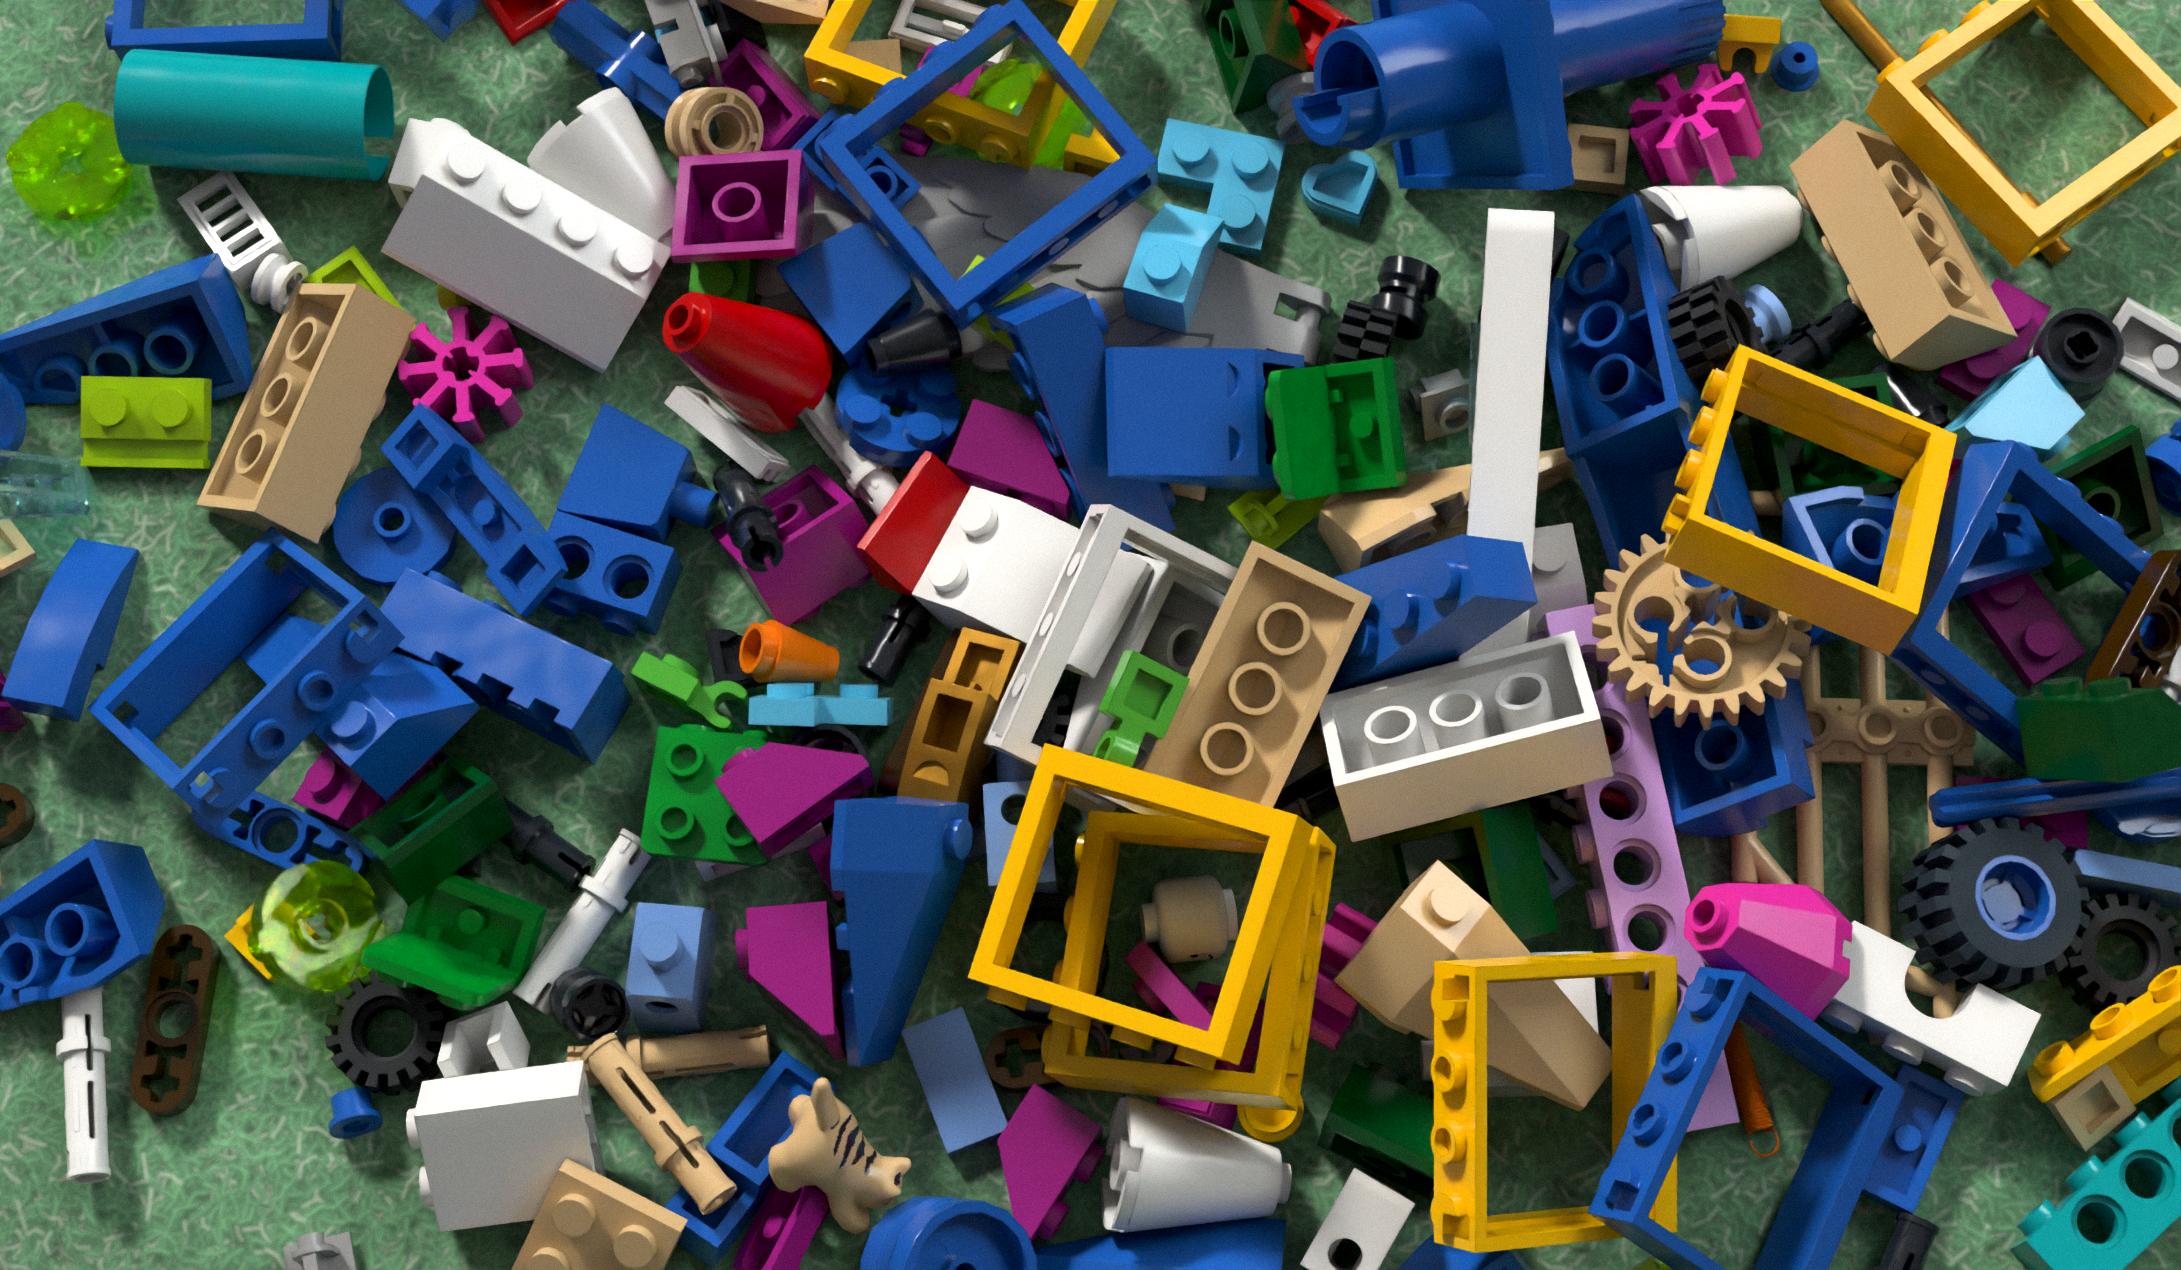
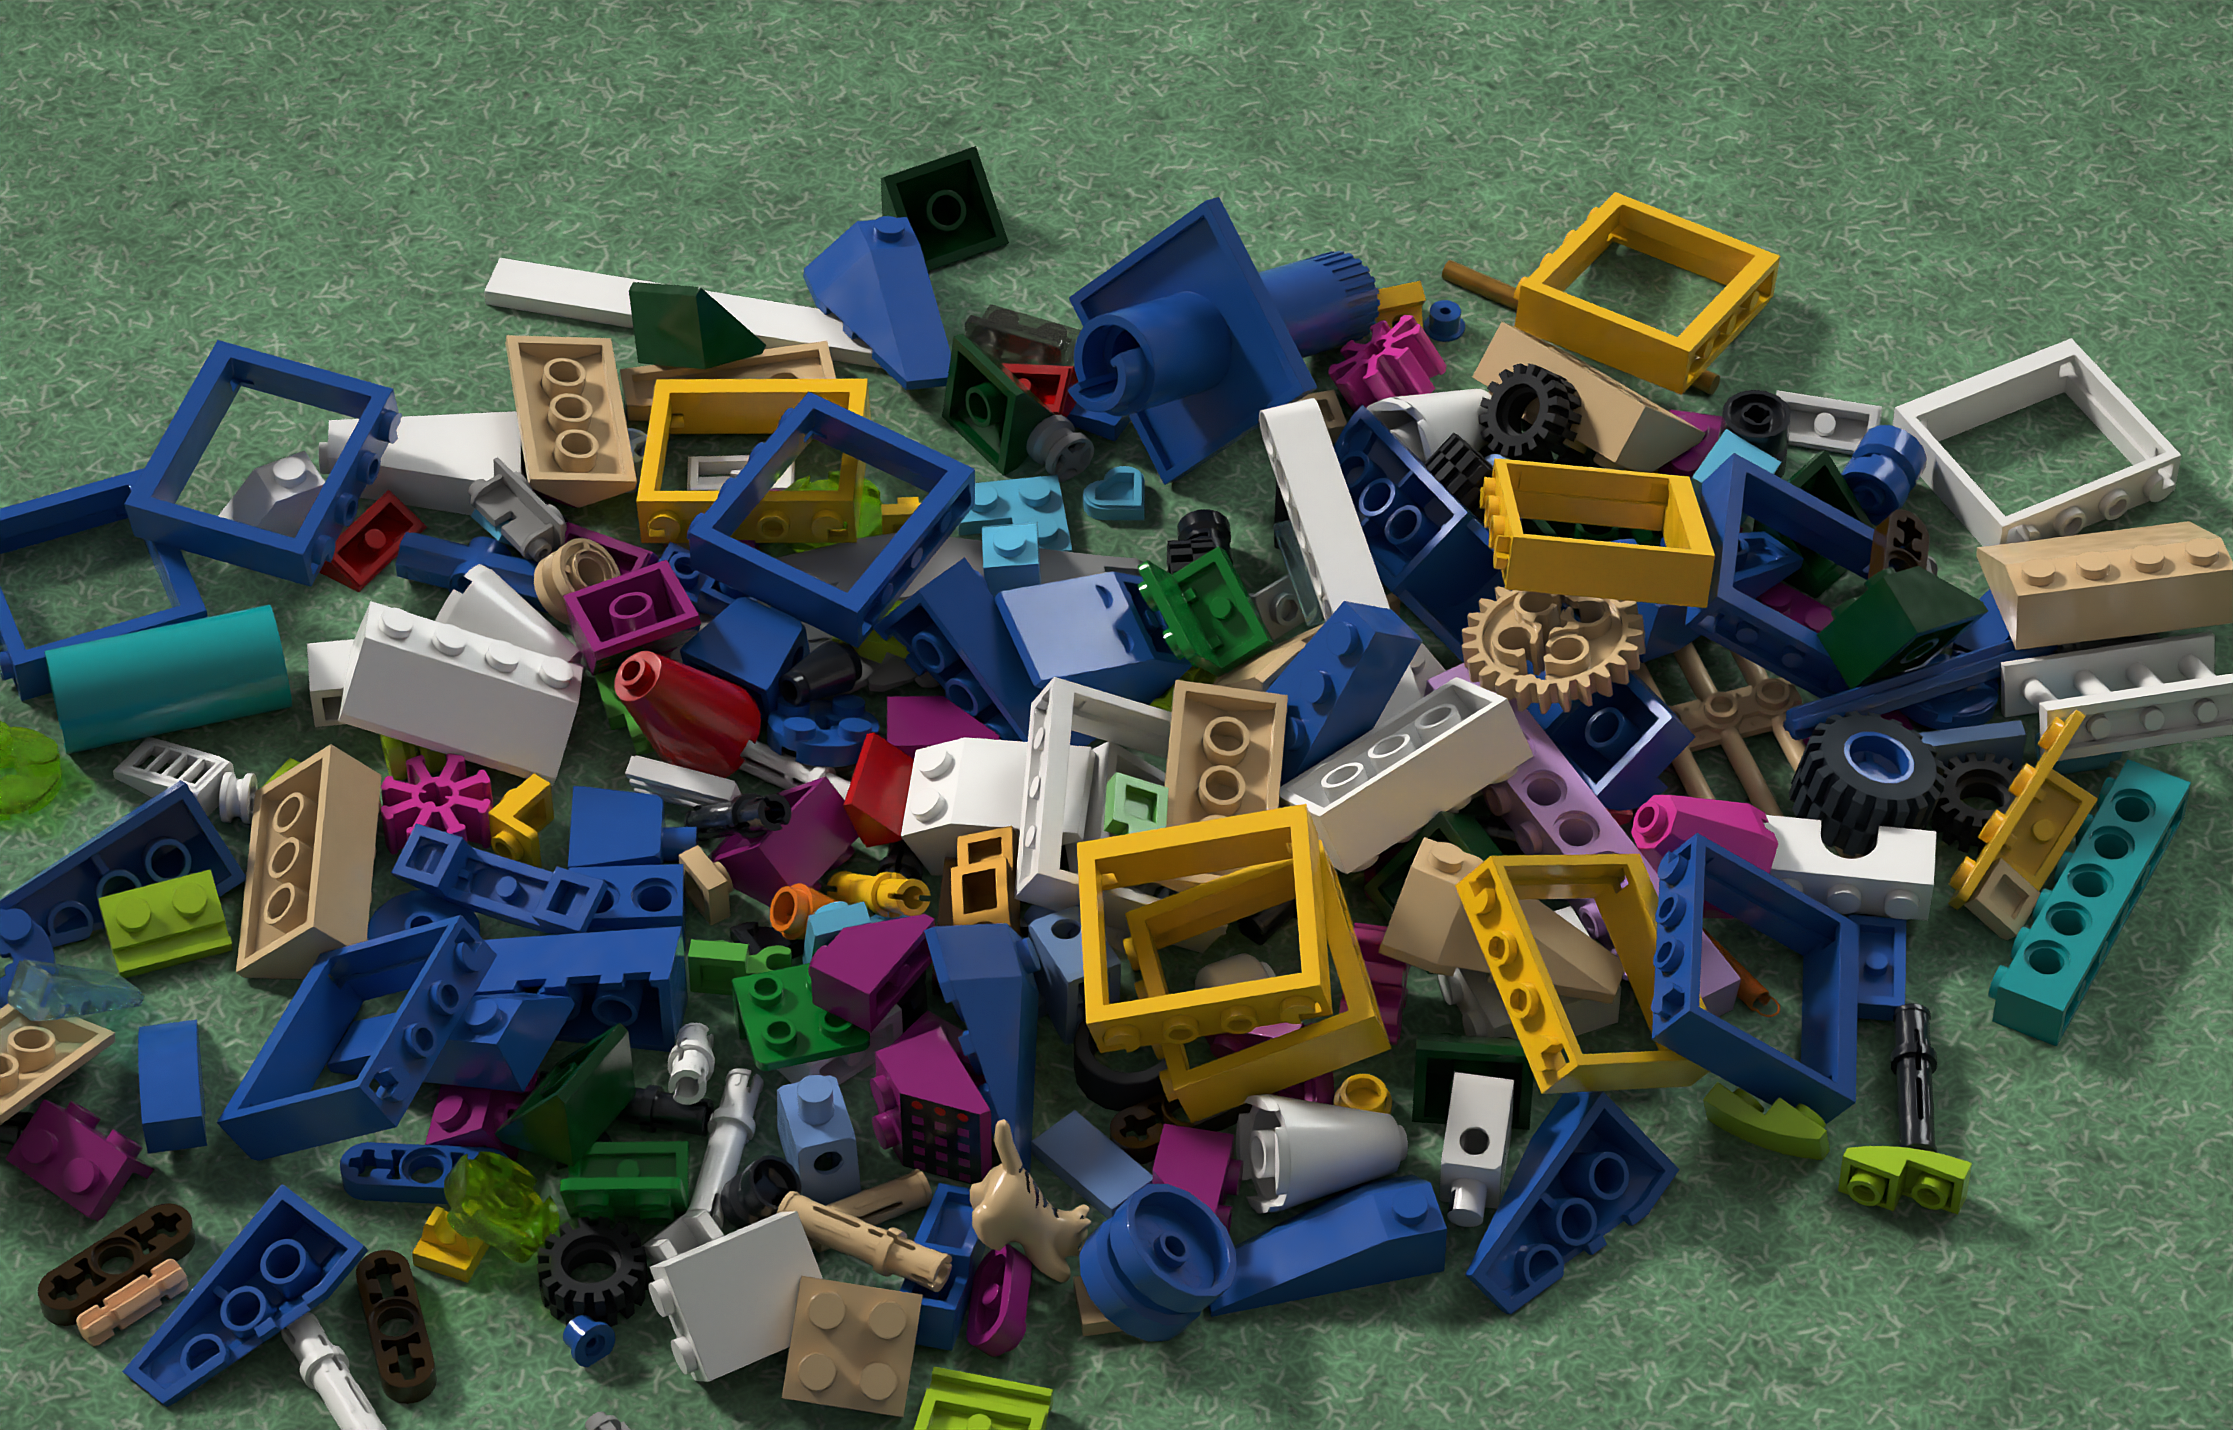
camera: 25 degrees left, 25 degrees down
(542, 412) = (519, 820): none -> yellow bracket
(585, 807) = (691, 1063): none -> white pin
(700, 569) = (706, 885): none -> tan plate
(855, 679) = (881, 893): none -> yellow pin
(1851, 266) = (1509, 403): none -> black tyre

